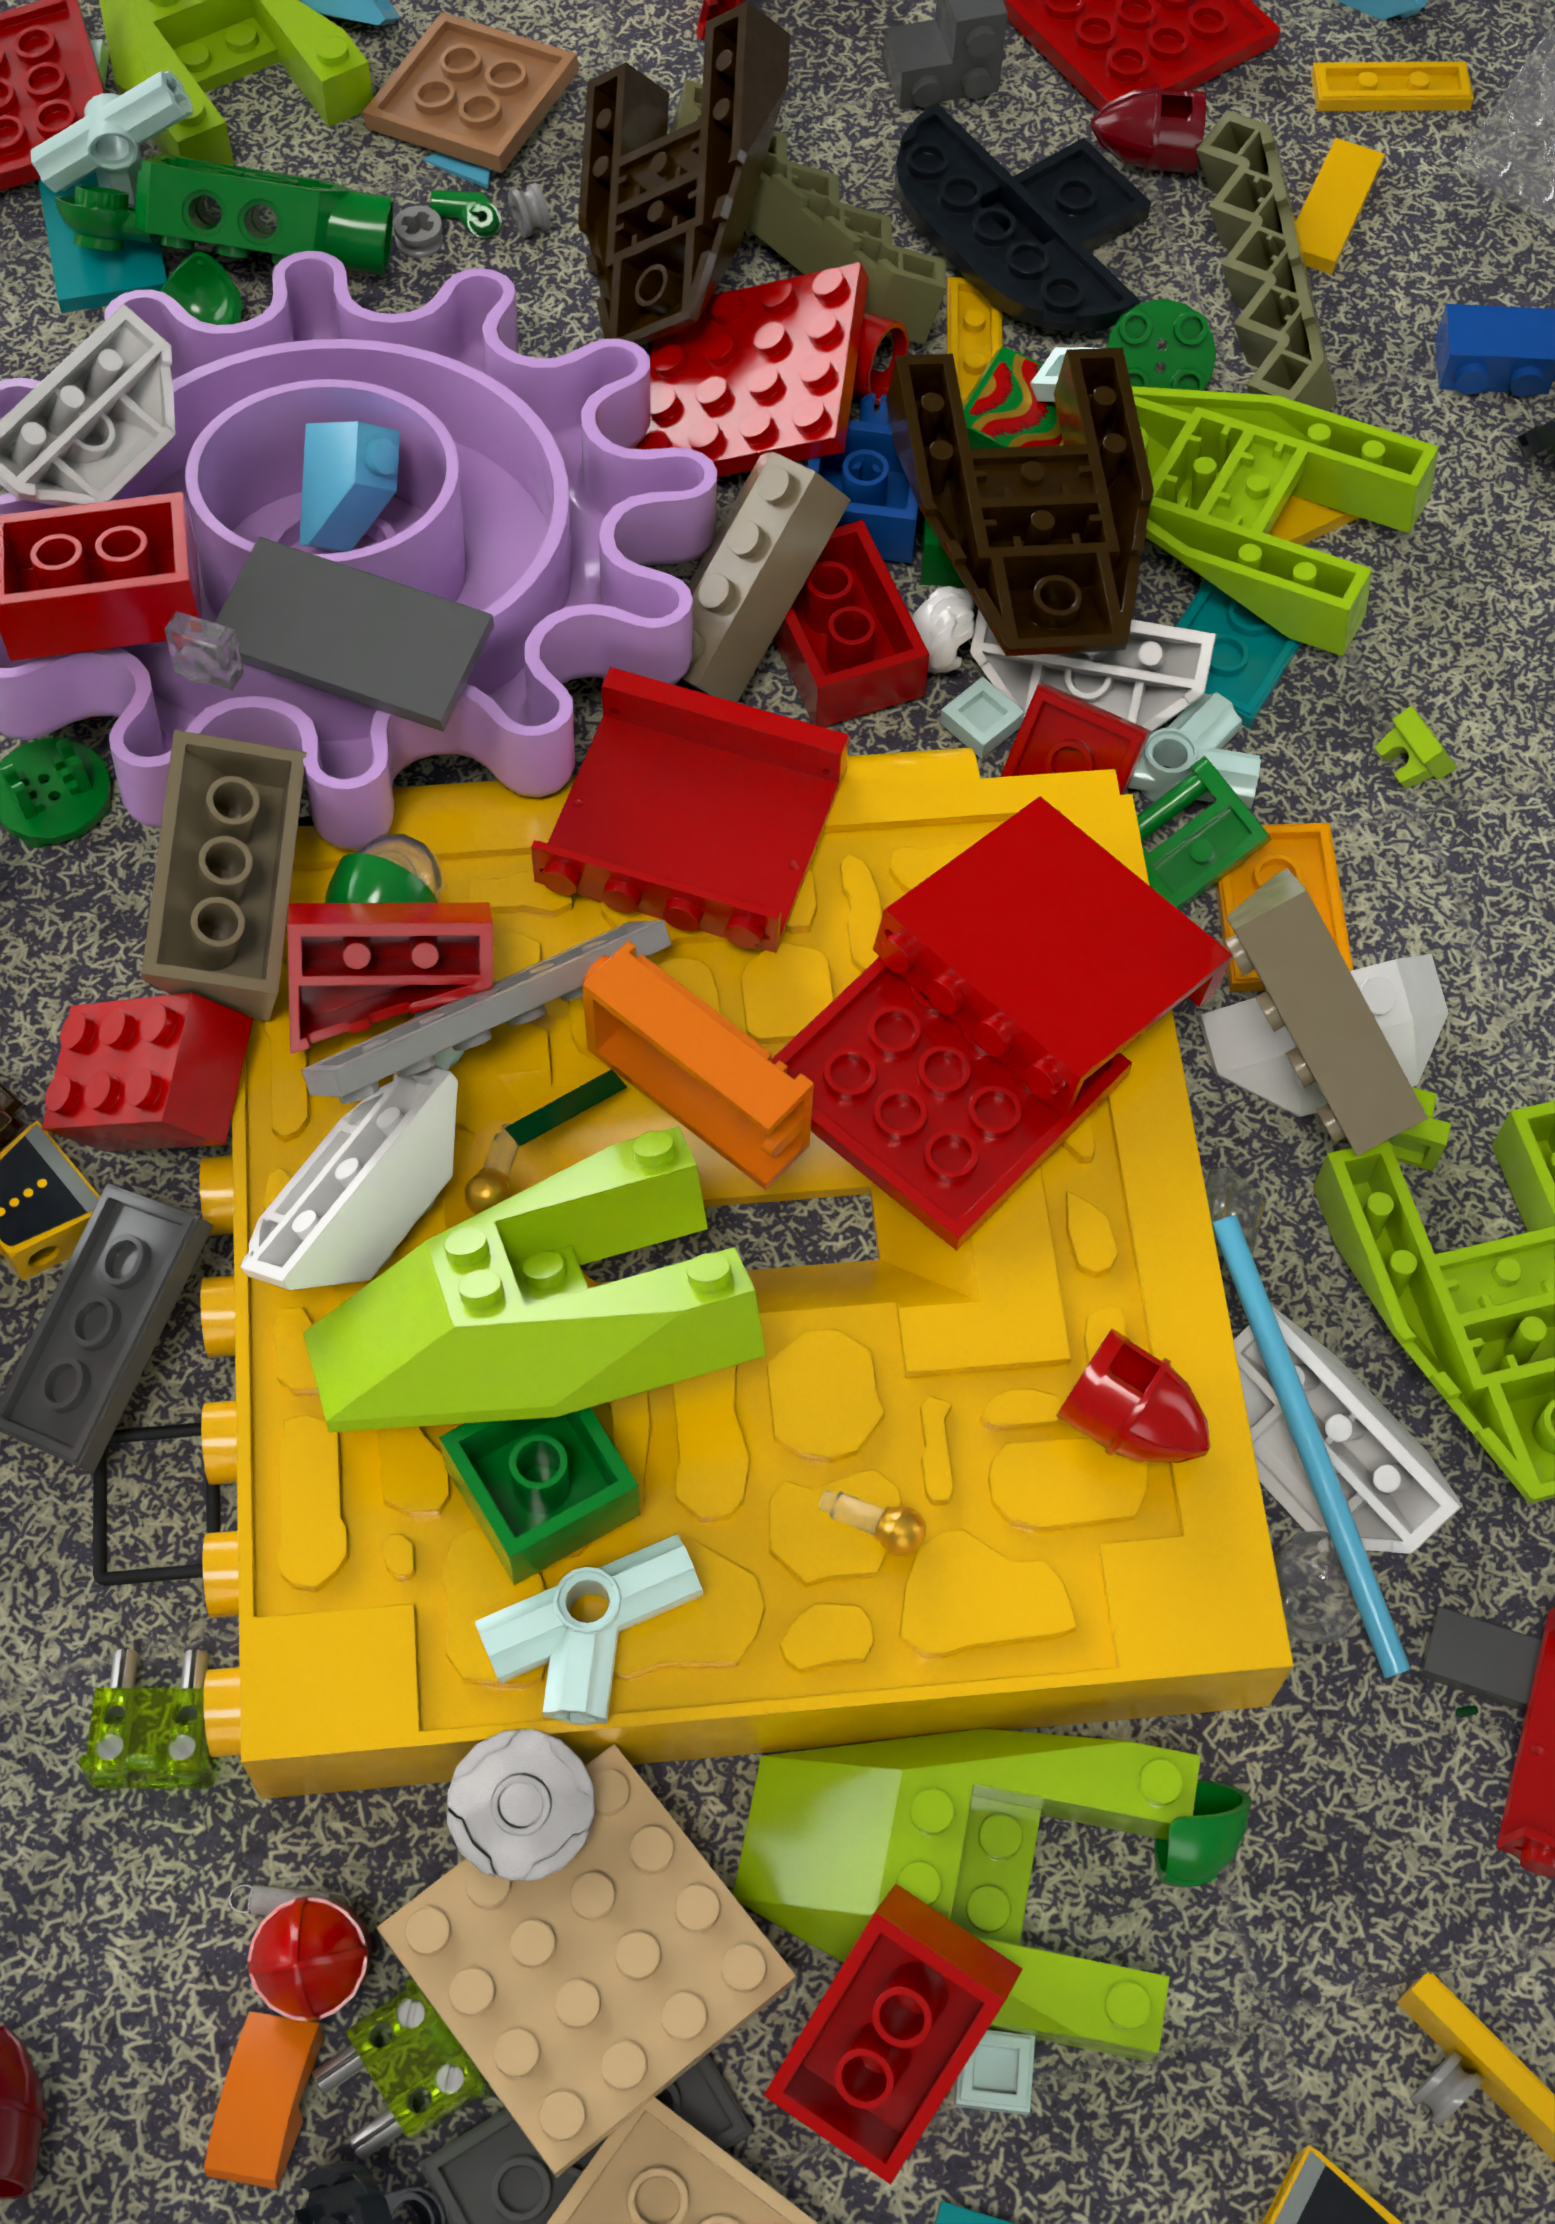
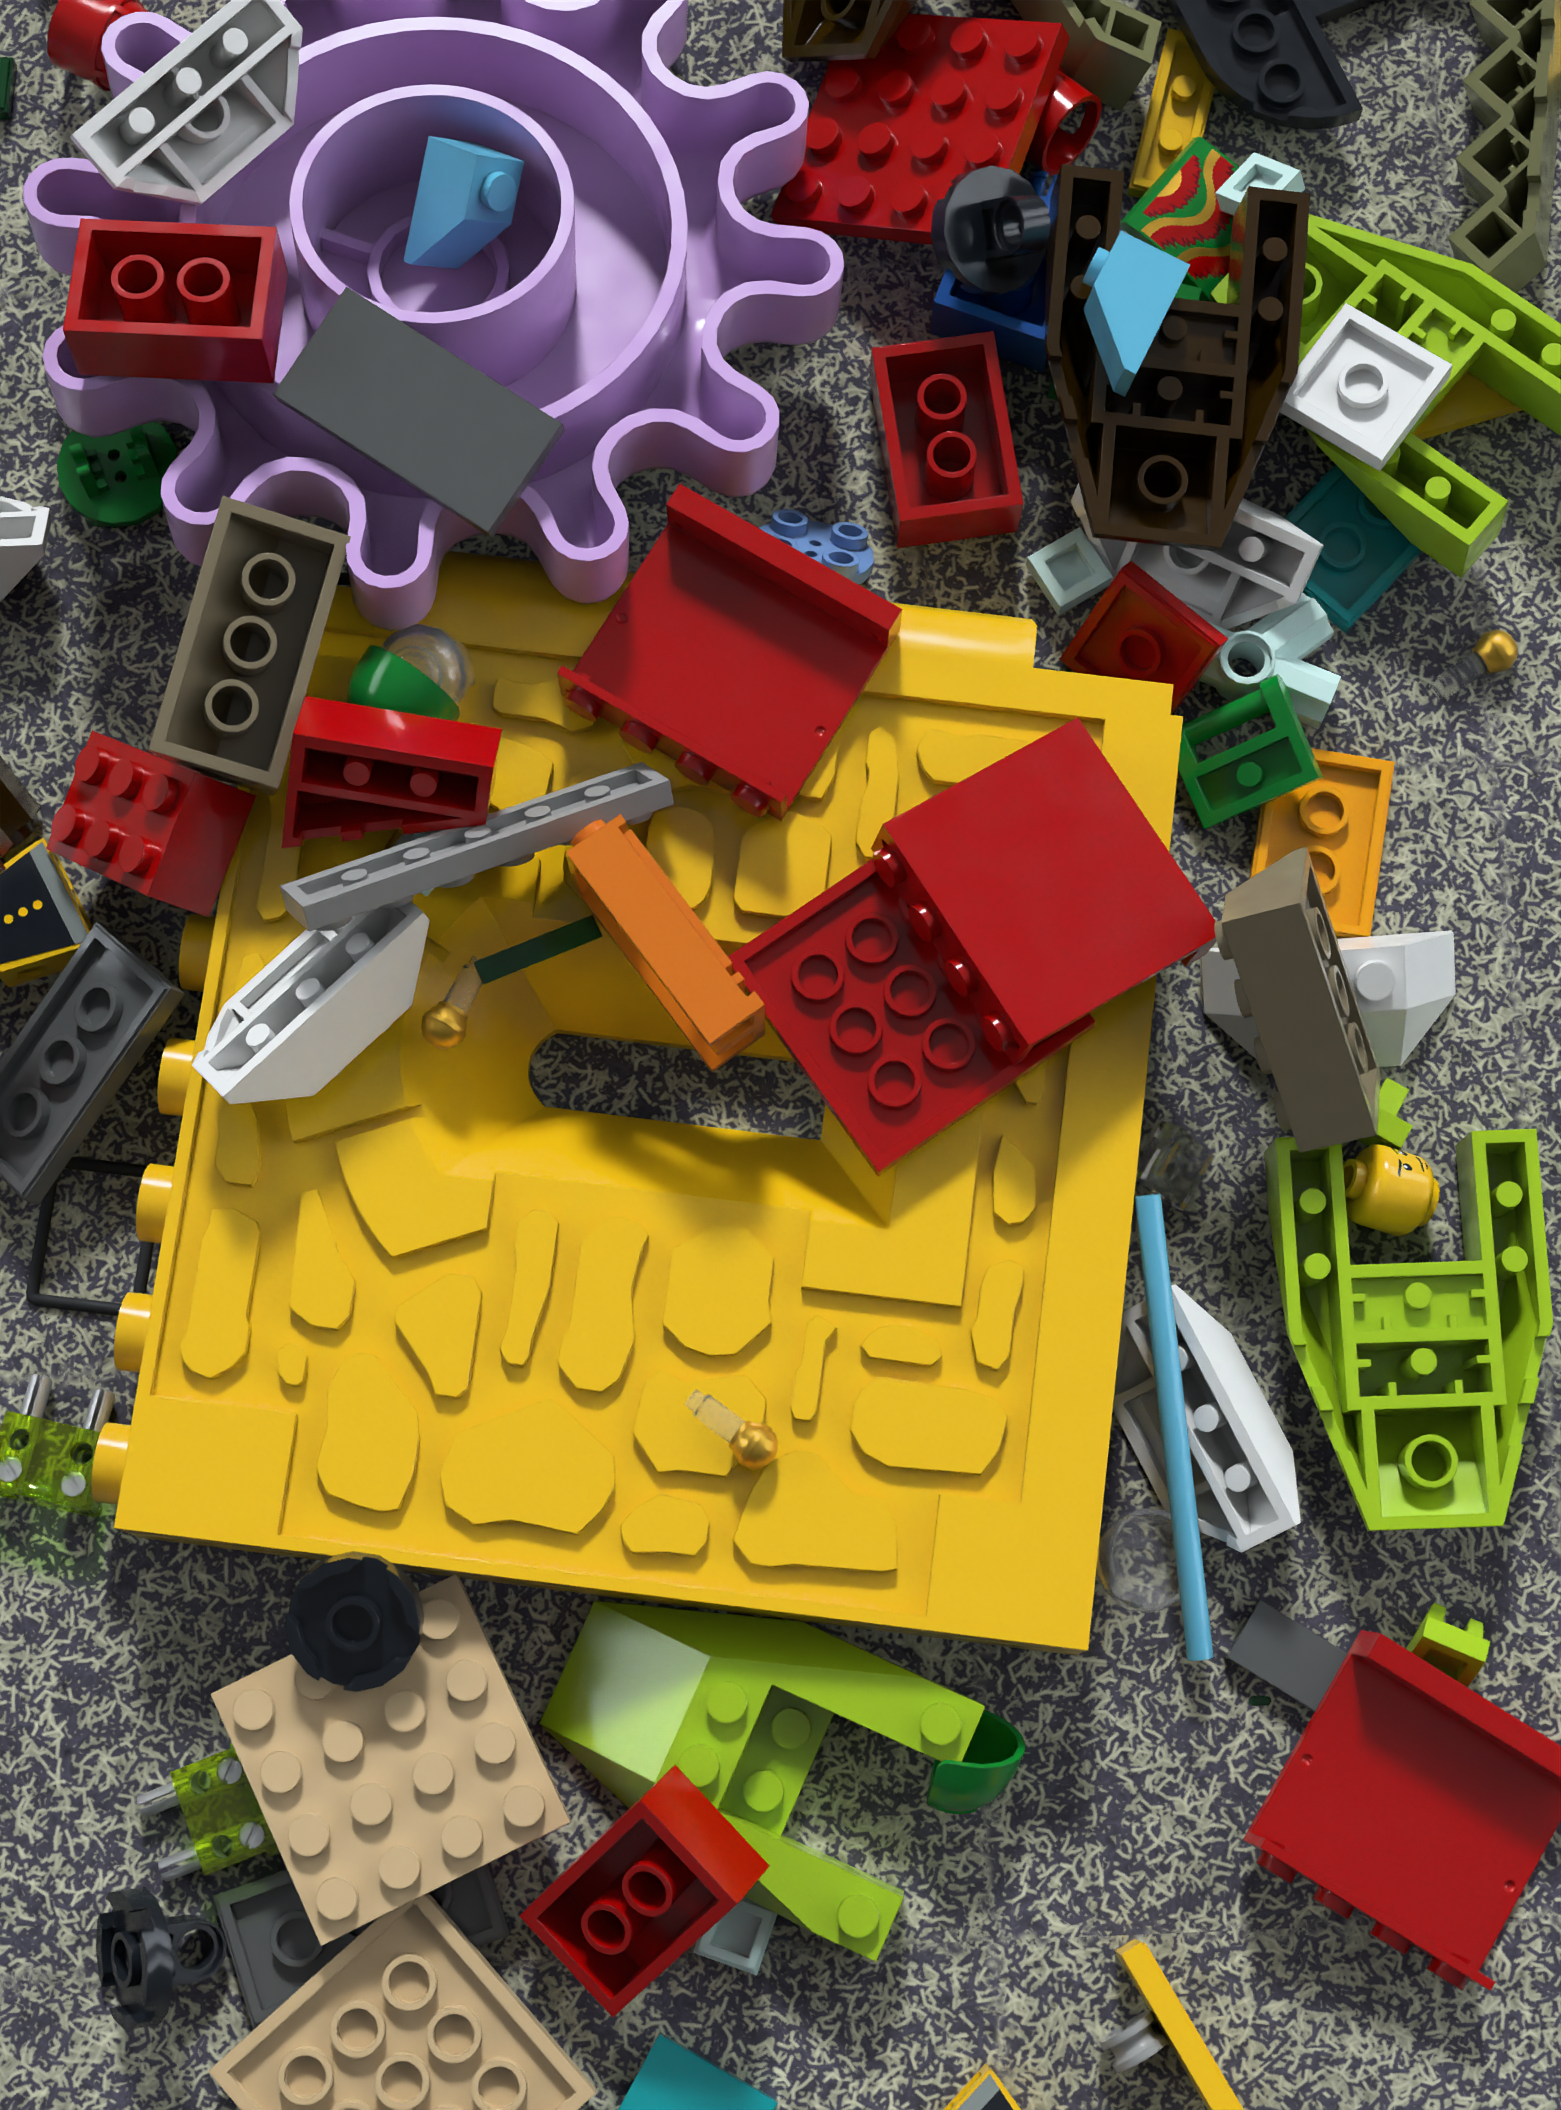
camera: 15 degrees right, 15 degrees up
(204, 651) = (268, 407): clear plate -> none
(261, 2100) = (88, 1810): orange slope -> none
(268, 1898) = (145, 1639): white piece -> none
(309, 1957) = (152, 1700): red helmet -> none
(502, 1319) = (418, 1167): lime wedge -> none
(540, 1486) = (428, 1328): green brick -> none
(580, 1652) = (435, 1506): light aqua piece -> none
(757, 570) = (862, 378): dark tan slope -> none
(844, 427) = (990, 230): none -> black tile
(944, 625) = (1046, 469): white hair -> none
(989, 449) = (1128, 303): none -> medium azure slope
(1136, 1405) = (1001, 1376): red helmet -> none
(1188, 345) = (1395, 185): green plate -> none
(1214, 500) = (1364, 386): none -> white plate
(1375, 730) = (1492, 653): none -> piece
(1425, 751) = (1516, 696): lime tile -> none
(1449, 1189) = (1389, 1190): none -> yellow head

